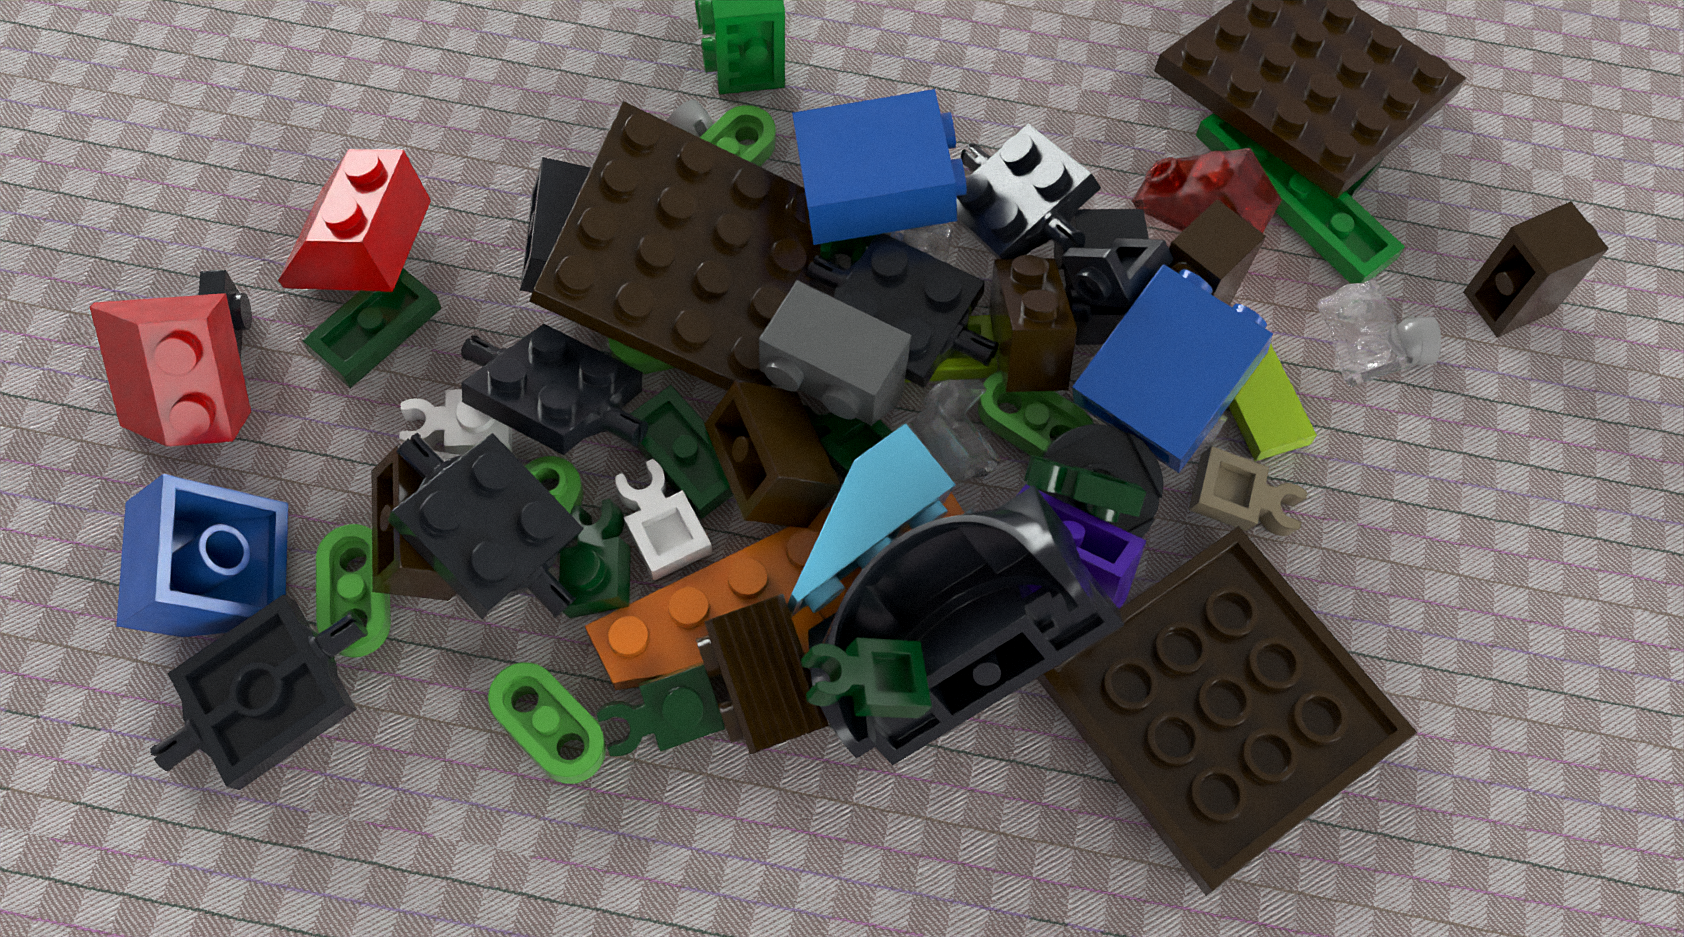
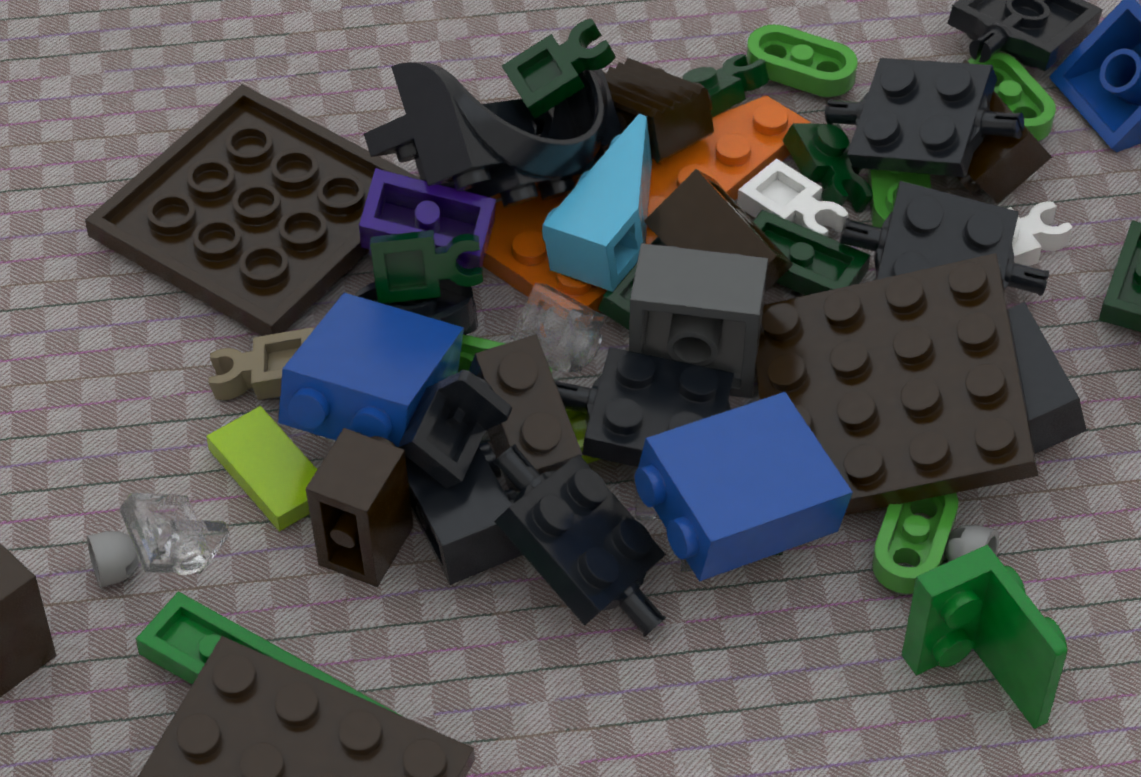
camera: 165 degrees right, 15 degrees down
(1186, 186) = (371, 632): clear red slope -> none

